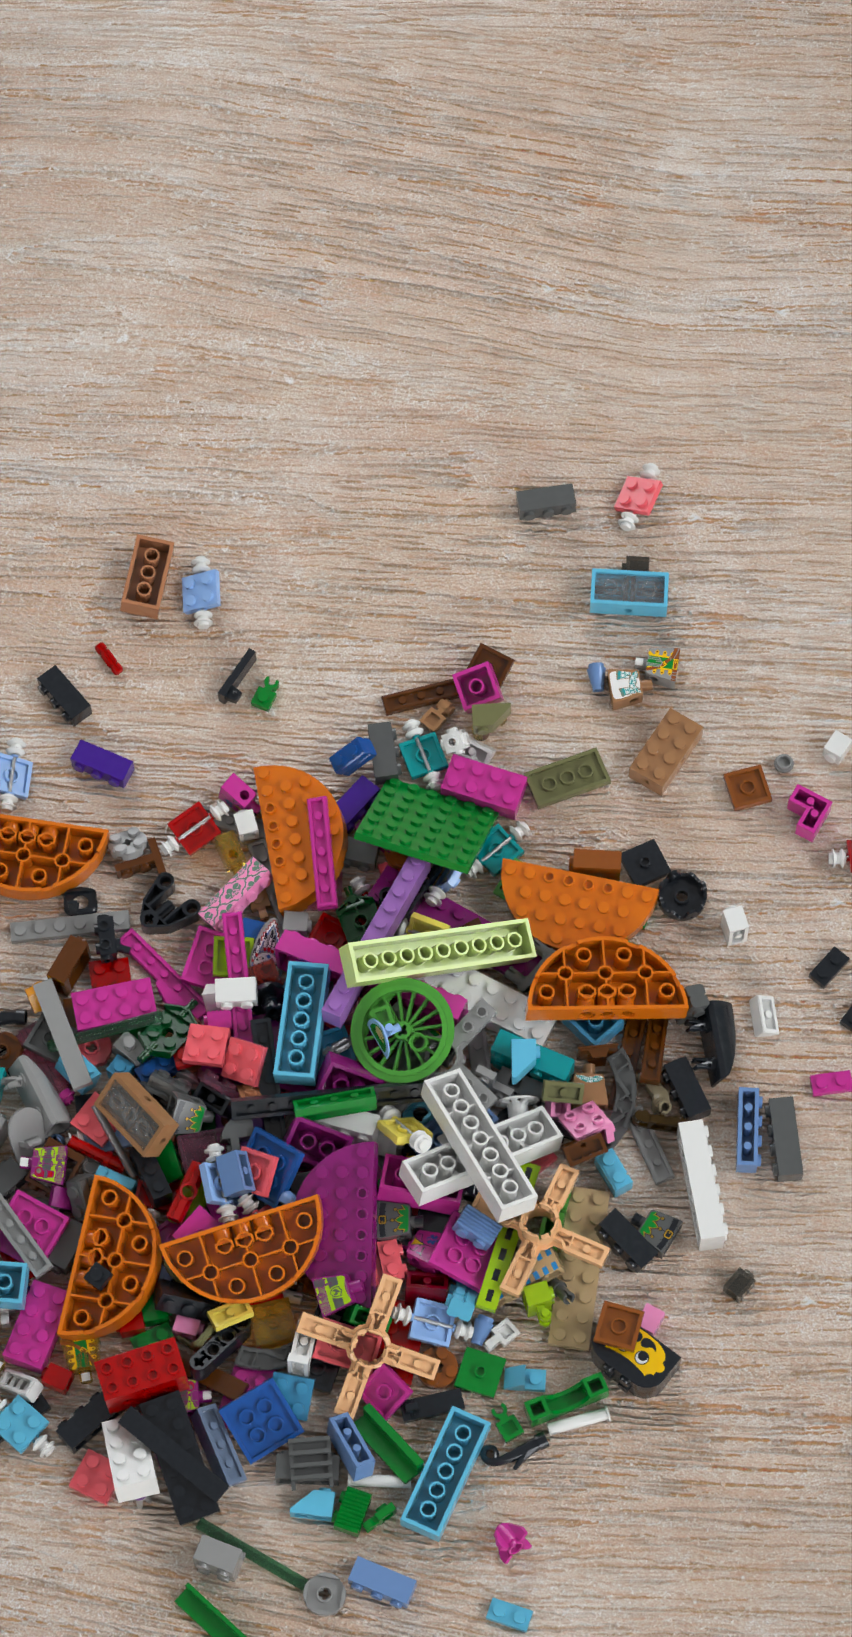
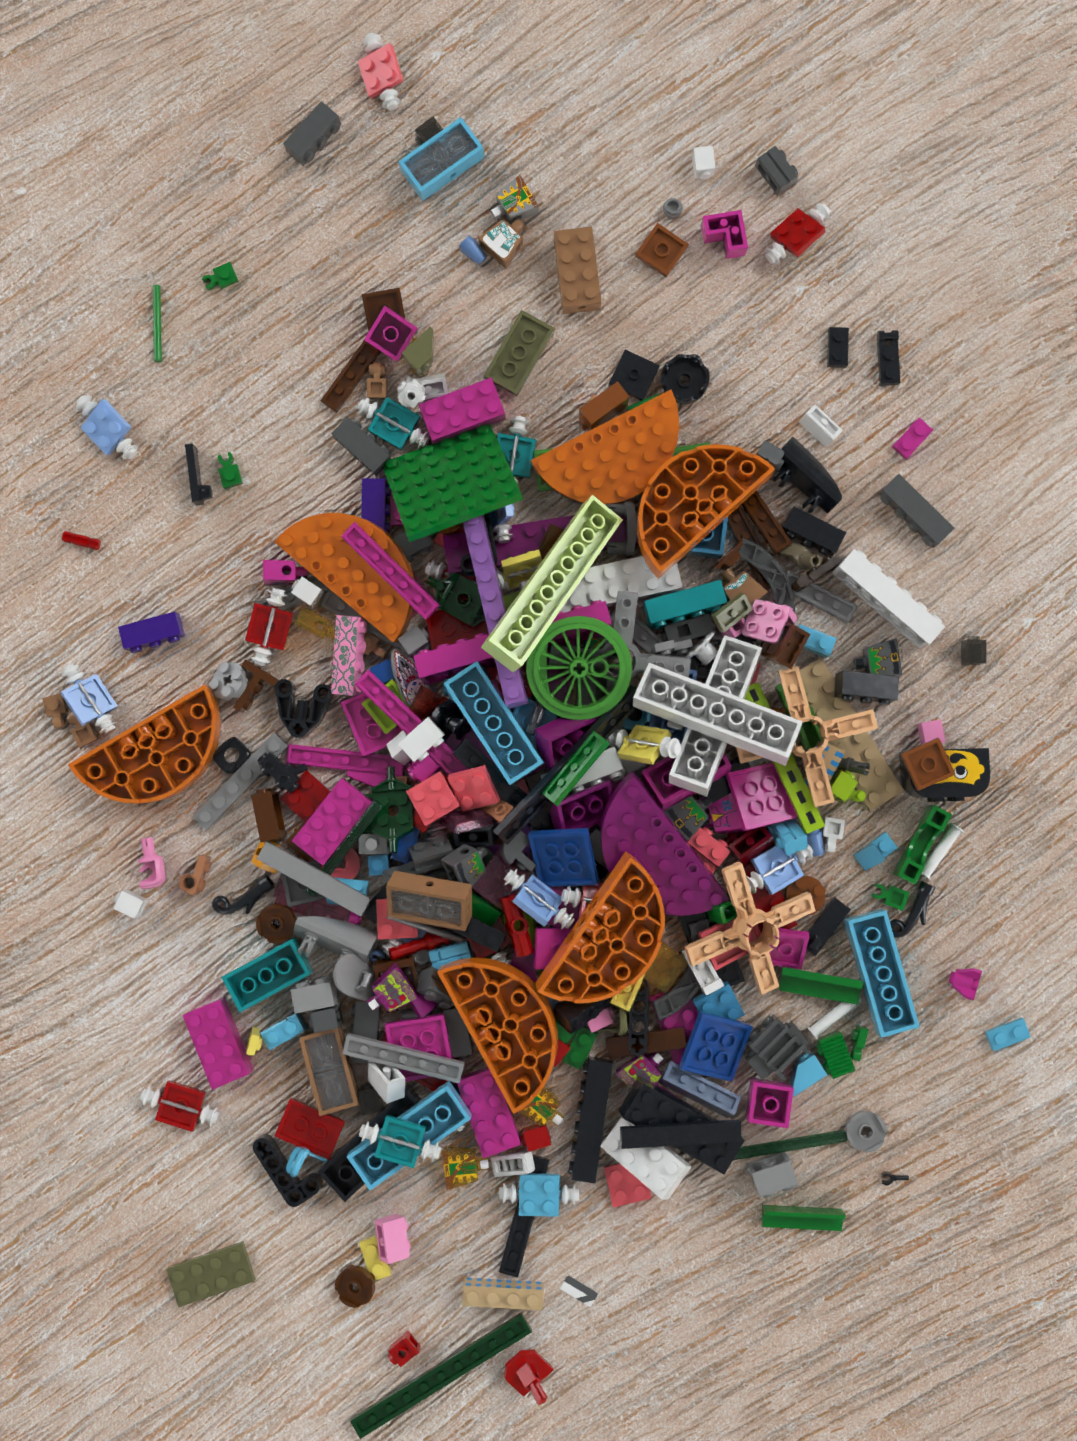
camera: 35 degrees left, 20 degrees up
(64, 696) = (73, 600): black brick -> none
(98, 1276) = (509, 1048): black plate -> none
(141, 1375) = (605, 1095): red piece -> none
(147, 576) = (52, 448): nougat brick -> none
(235, 1174) = (546, 885): medium blue brick -> none
(263, 1170) = (558, 870): coral plate -> none
(265, 1502) = (769, 1102): none -> dark pink brick
(287, 1197) = (601, 871): medium blue hinge -> none
(306, 548) = (157, 323): none -> green bar
(336, 1292) = (697, 912): torso -> none
(350, 1446) = (797, 1011): medium blue brick -> none
(352, 756) = (342, 469): blue brick -> none
(381, 1034) = (569, 686): light blue shield -> none
(382, 1583) = (900, 1089): medium blue brick -> none
(383, 1015) = (557, 671): bright green plate -> none
(386, 553) = (223, 275): none -> green plate
(476, 1227) = (757, 773): medium blue brick -> none
(480, 1372) = (839, 873): green plate -> none
(523, 1057) = (683, 611): medium azure slope -> none
(734, 925) = (745, 370): white brick -> none
(747, 1130) = (885, 526): medium blue brick -> none

